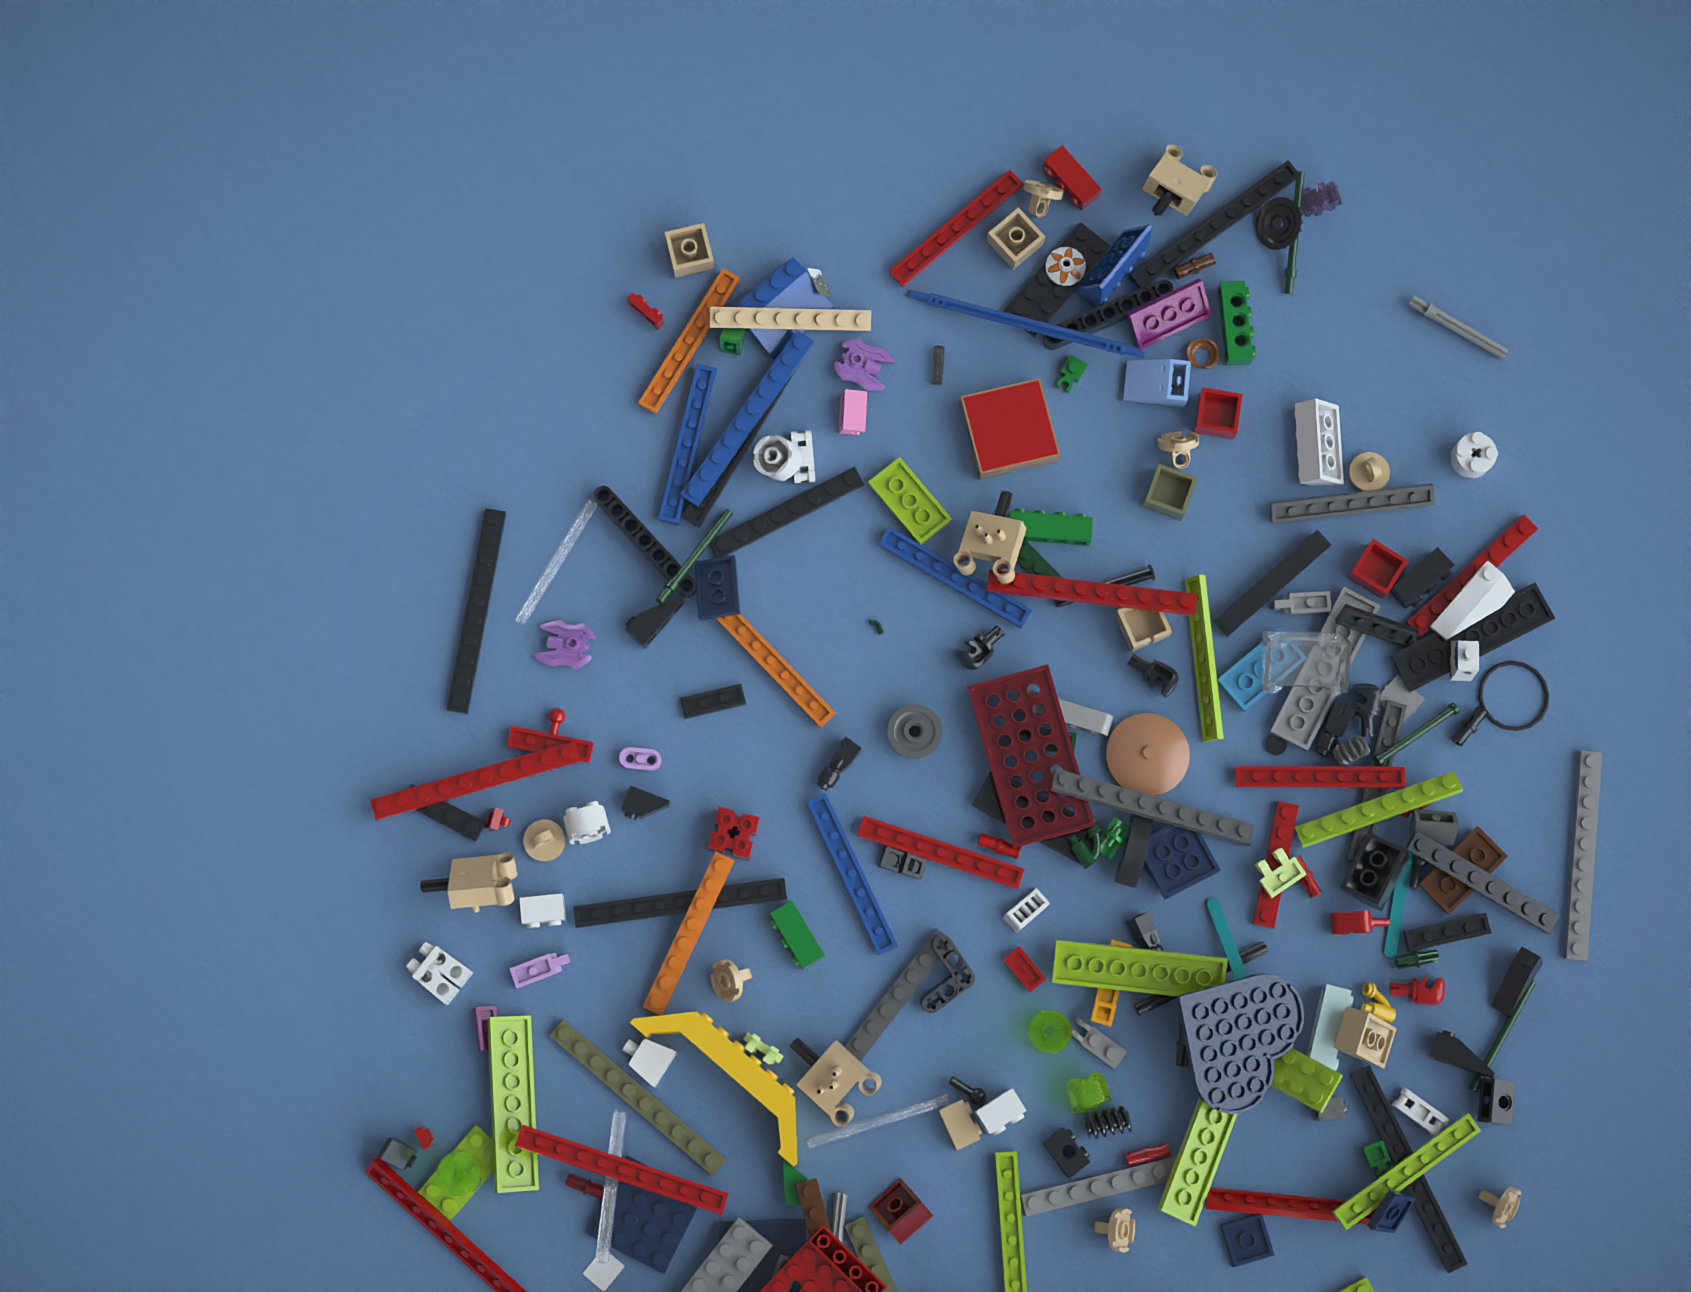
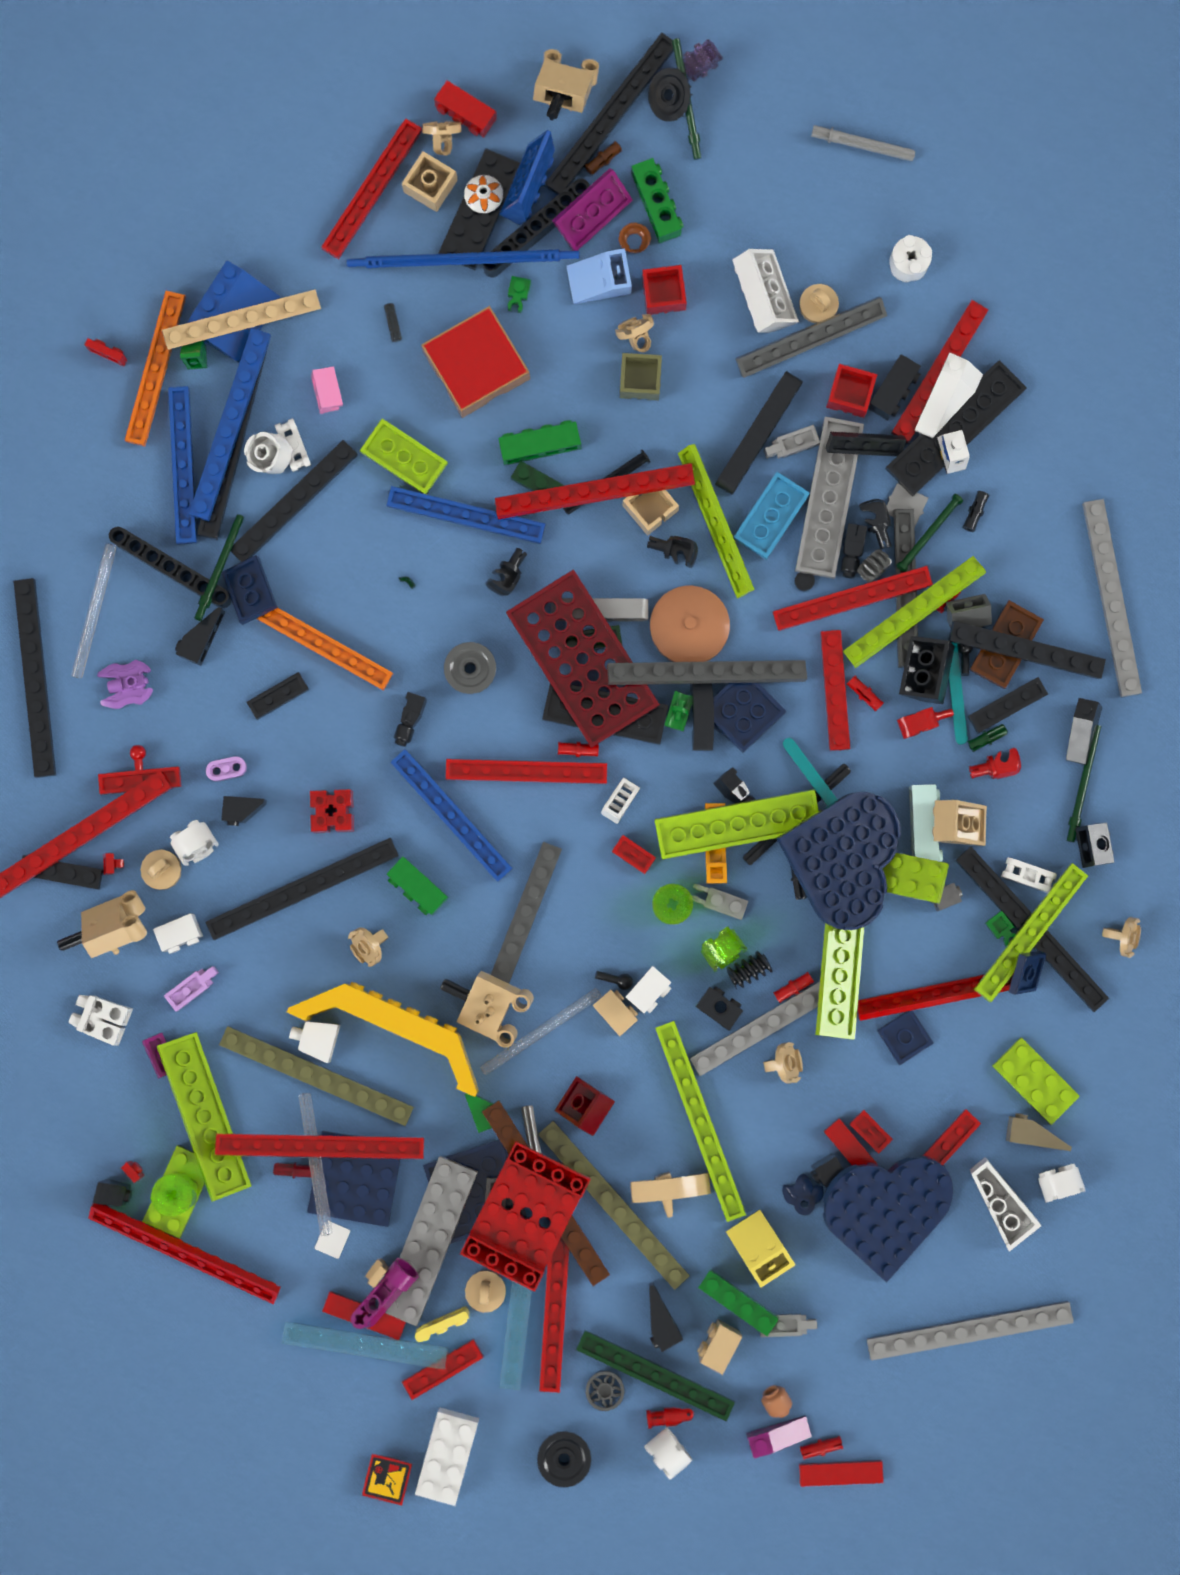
camera: 10 degrees left, 5 degrees up
(688, 933) = (317, 914): orange plate -> none
(689, 250) = (129, 283): tan brick -> none
(771, 1053) = (407, 996): yellowish green plate -> none
(819, 282) = (259, 277): sticker -> none
(861, 363) = (322, 341): medium lavender piece -> none
(902, 863) = (495, 791): black slope -> none
(953, 979) = (572, 883): black beam -> none
(993, 540) = (489, 469): tan piece -> none
(1081, 850) = (658, 734): dark green plant -> none
(1281, 877) = (844, 700): yellowish green plate -> none
(1305, 660) = (808, 495): clear windscreen -> none
(1383, 1009) = (969, 794): yellow plant -> none
(1455, 1053) = (1044, 812): black slope -> none
(1546, 702) = (1015, 441): black piece -> none

